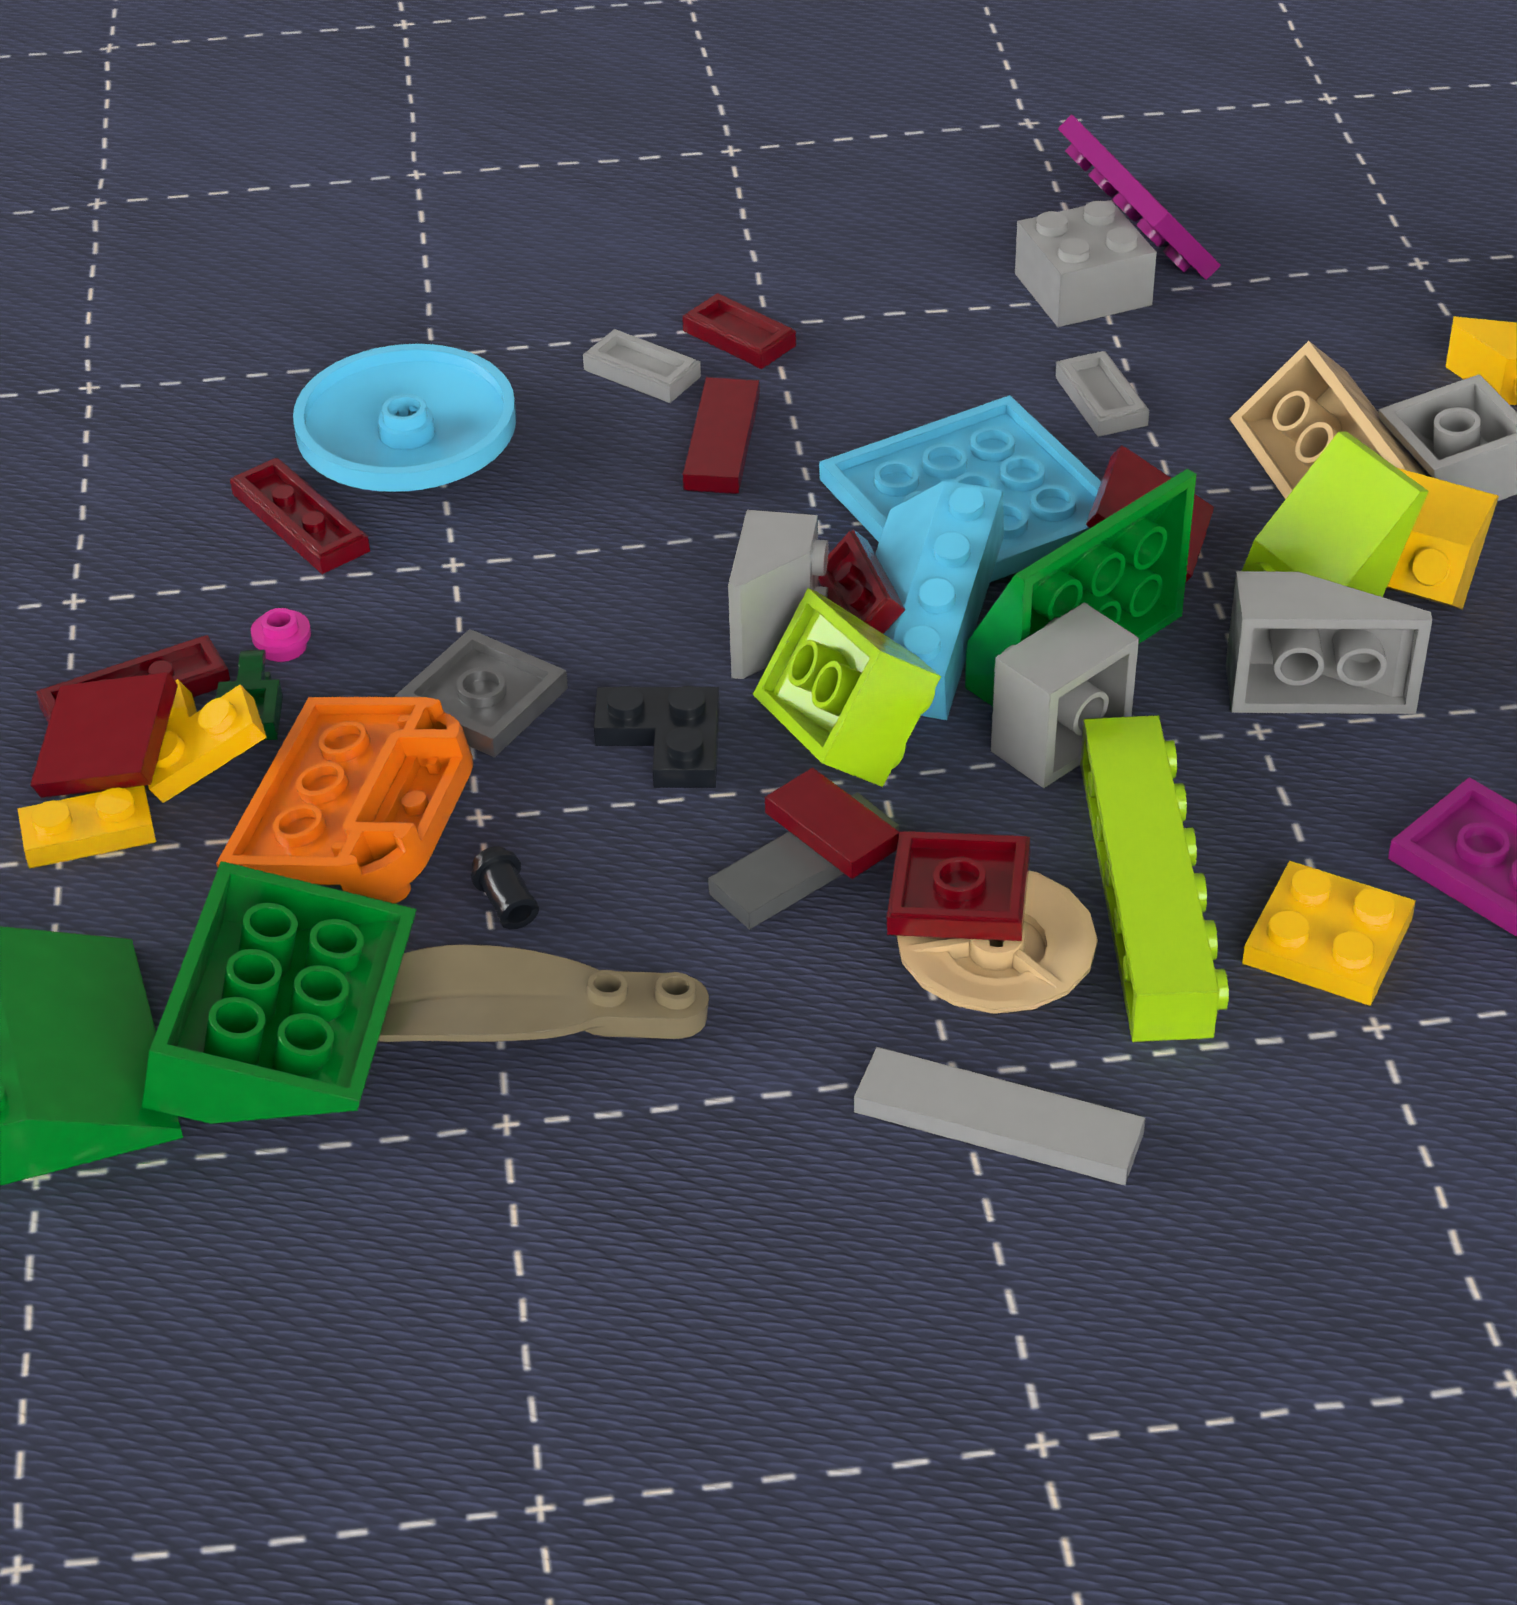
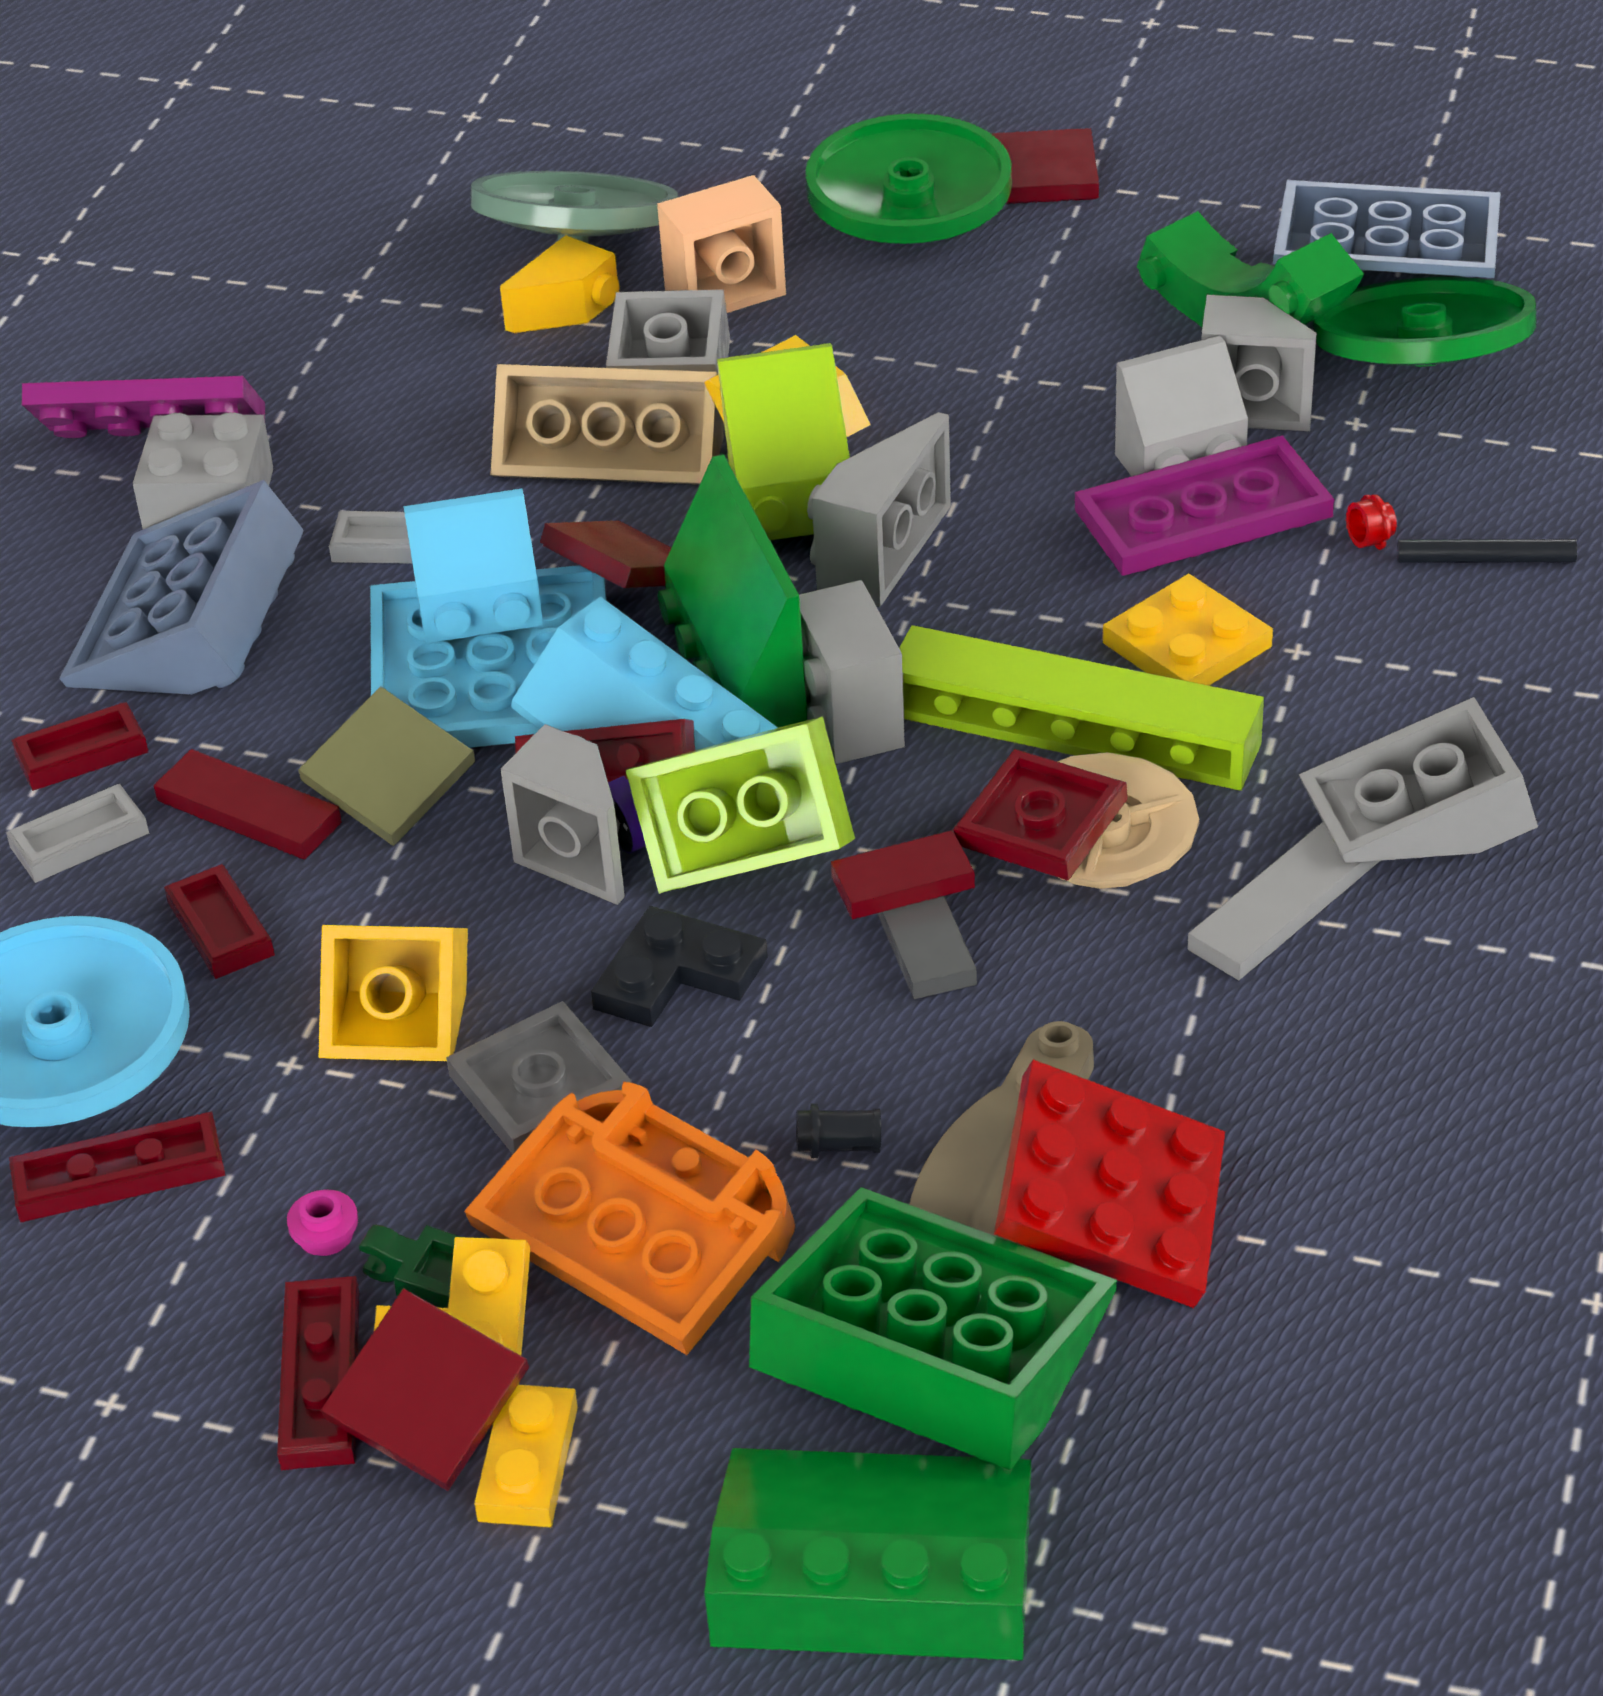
camera: 65 degrees left, 0 degrees up
(497, 1074) = (1111, 1184): none -> red plate
(538, 574) = (391, 992): none -> yellow slope
(583, 469) = (219, 921): none -> dark red tile
(792, 476) = (387, 765): none -> olive tile
(937, 317) = (188, 598): none -> sand blue slope
(1022, 422) = (473, 565): none -> medium azure slope
(1175, 1167) = (1423, 791): none -> light grey slope

